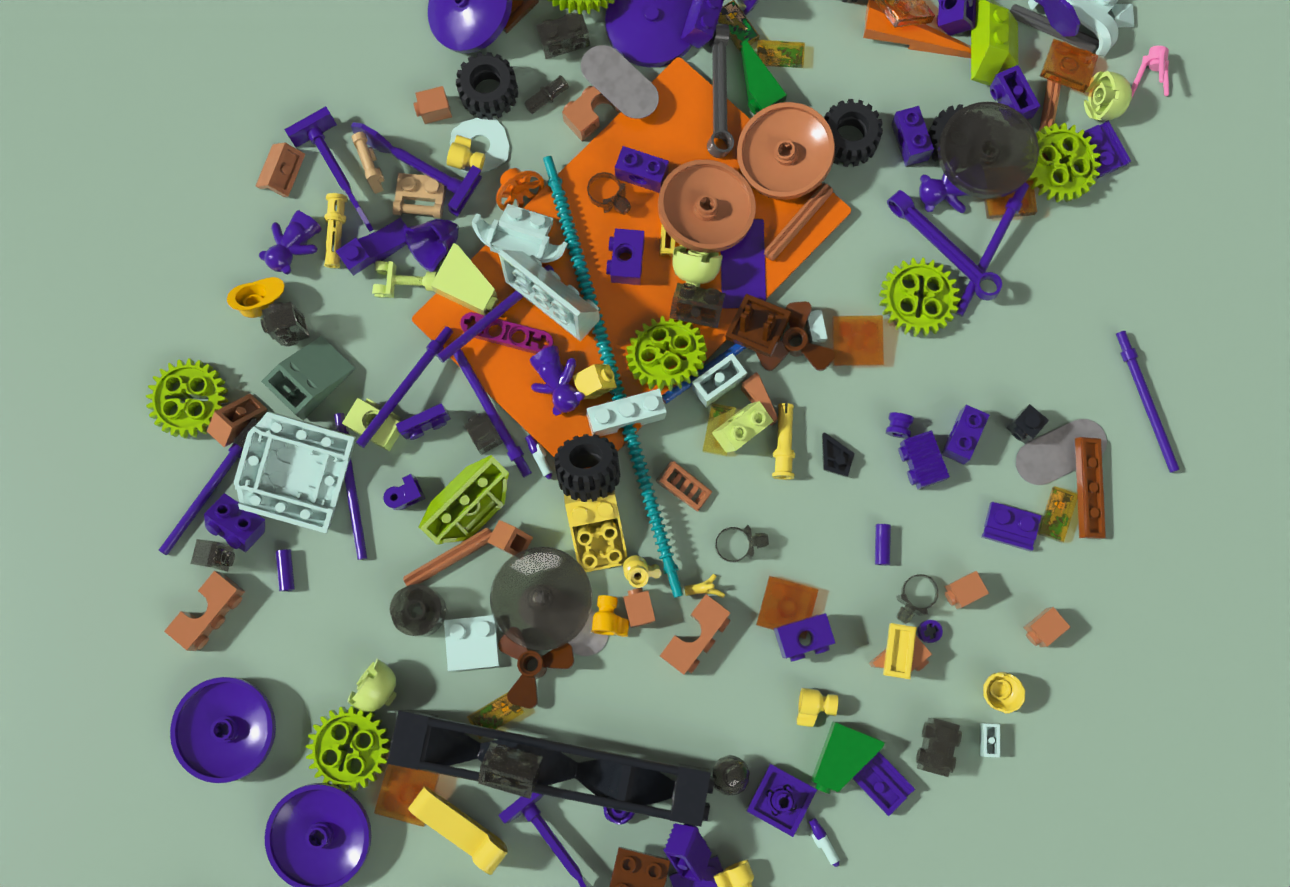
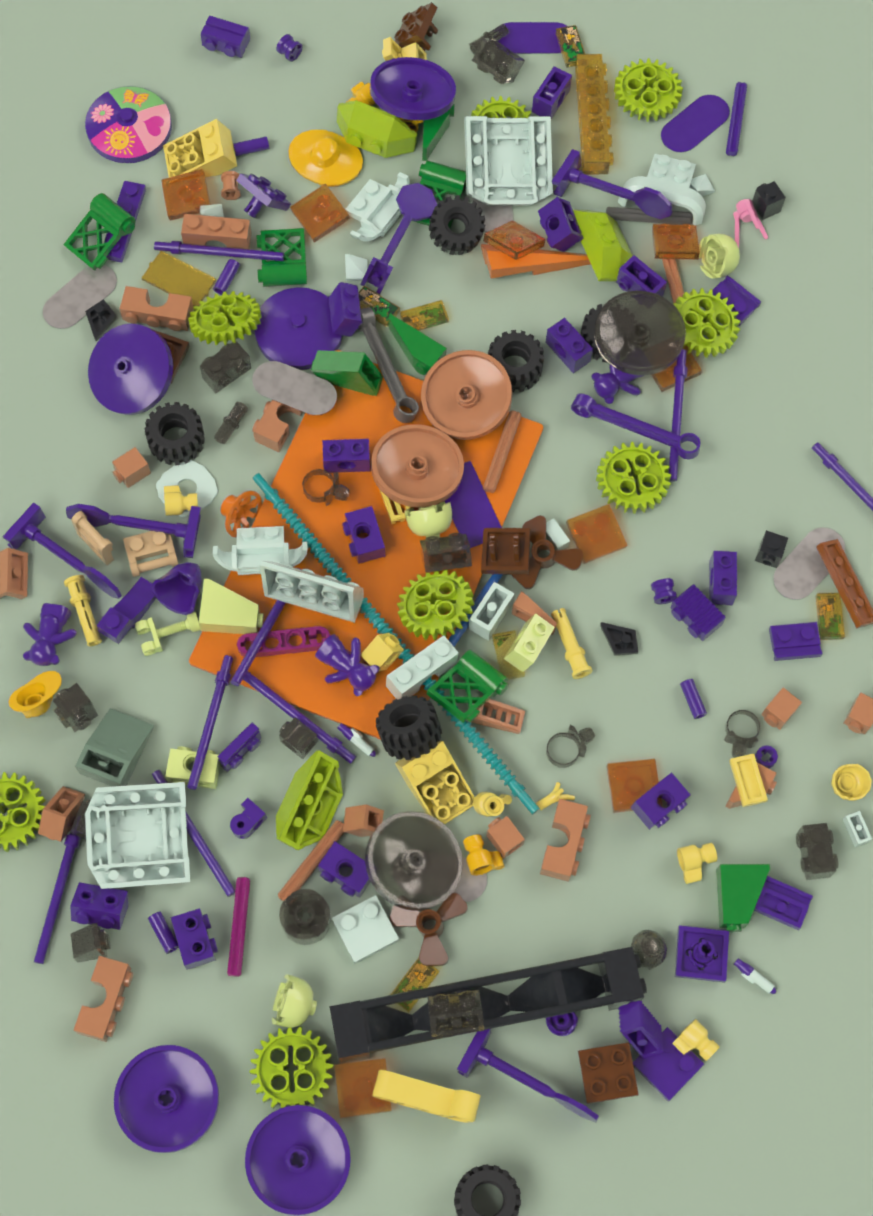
camera: 30 degrees left, 10 degrees down
(308, 589) = (194, 938): none -> dark purple brick
(356, 593) = (238, 927): none -> magenta axle
(464, 569) = (339, 857): none -> dark purple brick
(679, 83) = (348, 371): none -> green slope
(682, 443) = (477, 676): none -> green piece
(1186, 55) = (768, 200): none -> black brick

